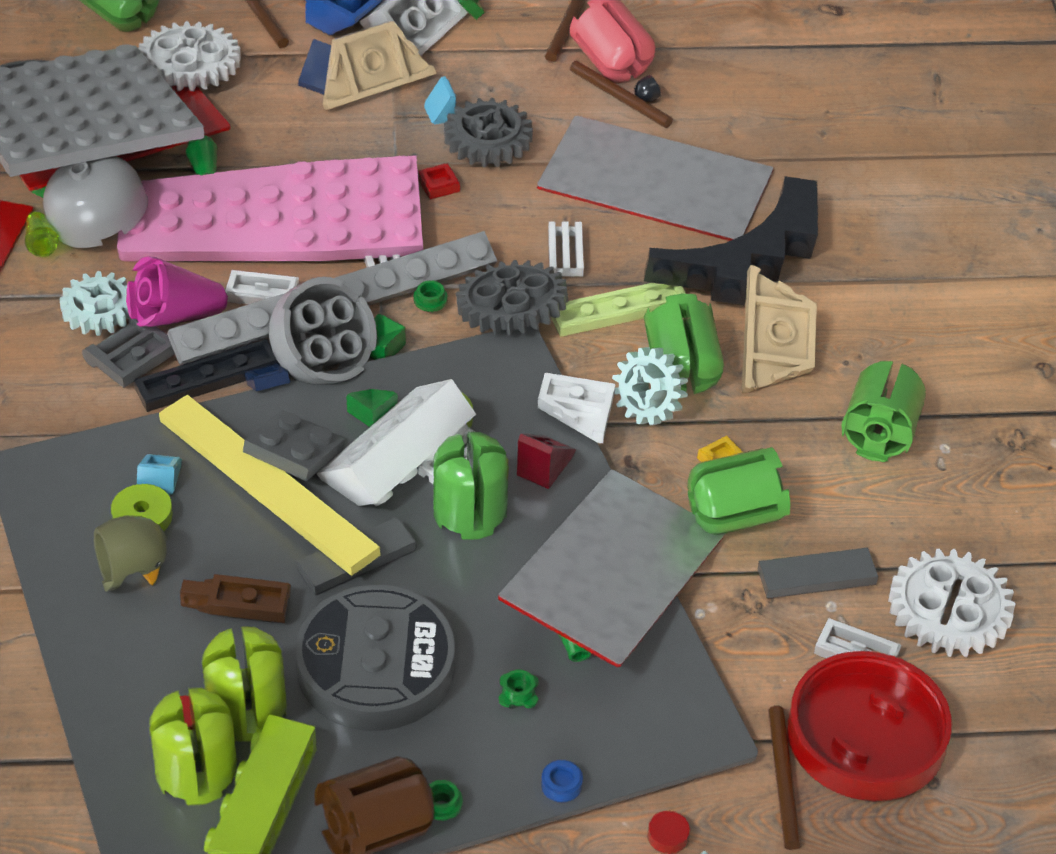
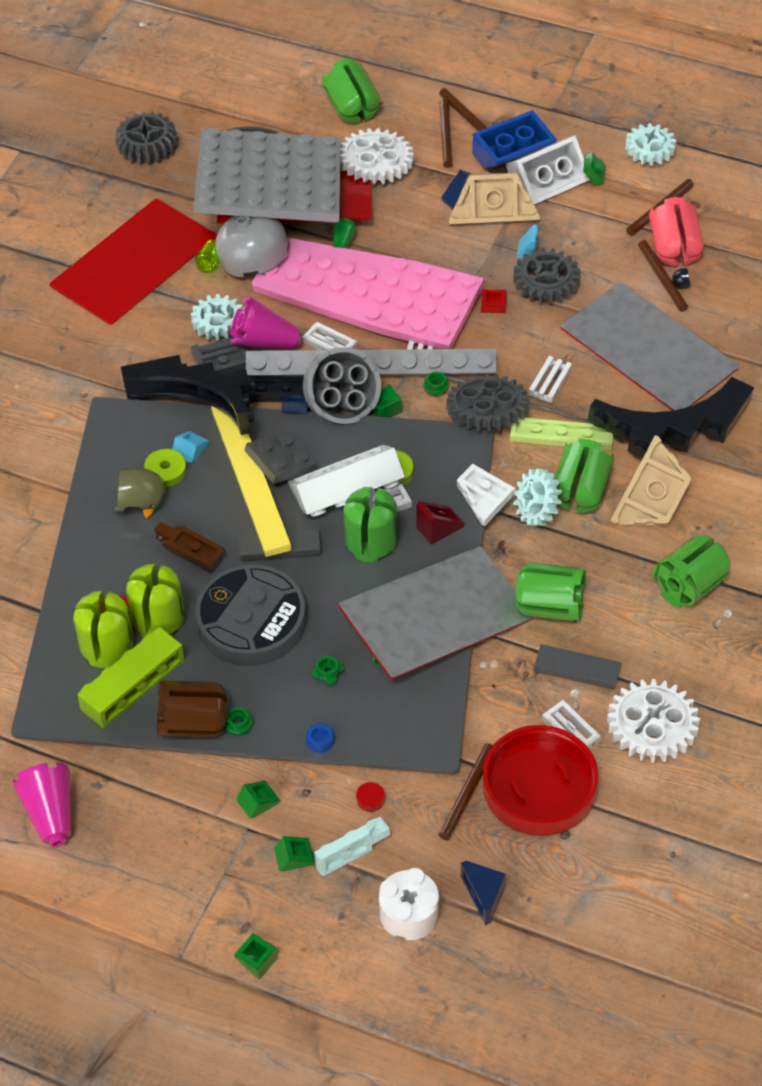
camera: 30 degrees right, 5 degrees up
(131, 387) = (170, 378): none -> black arch
(370, 404) = (347, 445): green slope -> none
(718, 449) = (566, 558): yellow tile -> none

